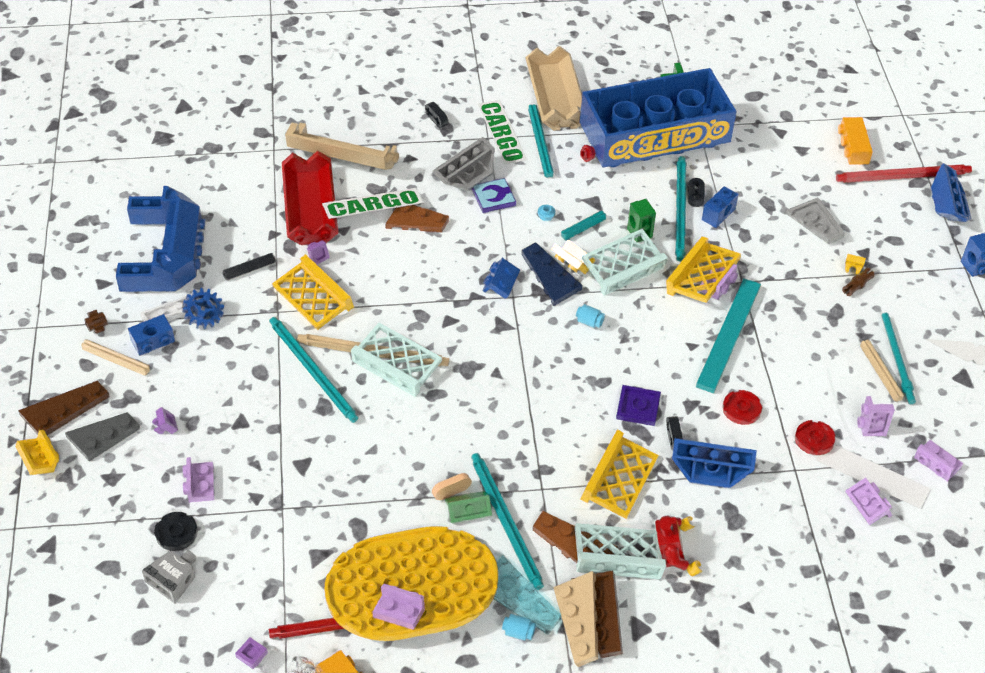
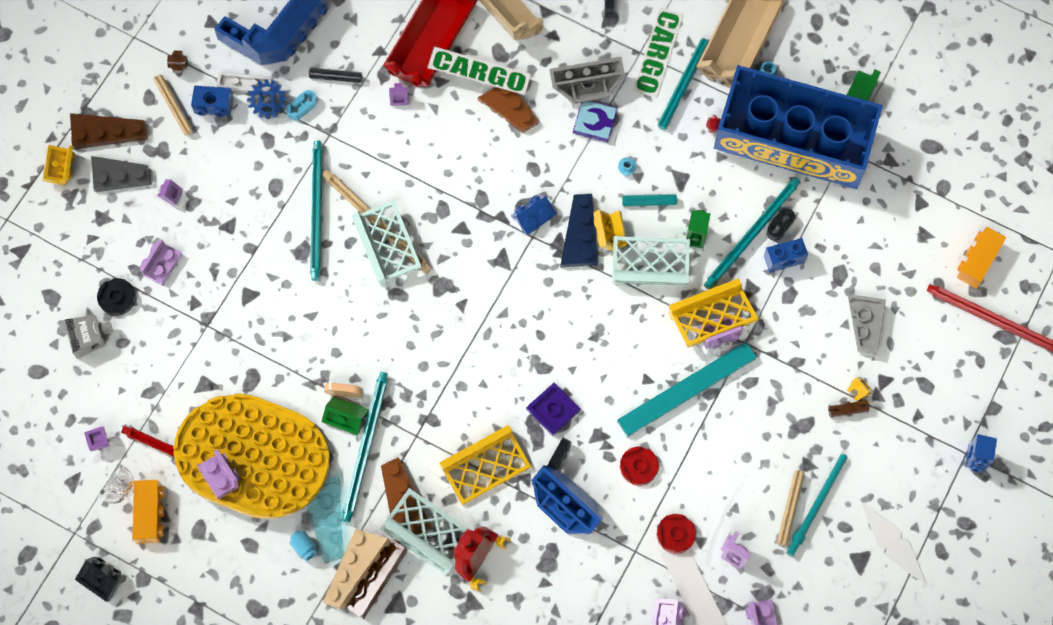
camera: 35 degrees right, 20 degrees up
(232, 300) = (302, 105): none -> medium azure beam
(326, 286) = (383, 134): yellow fence -> none
(590, 316) = (578, 299): medium azure brick -> none
(949, 195) = (1016, 375): blue wedge -> none

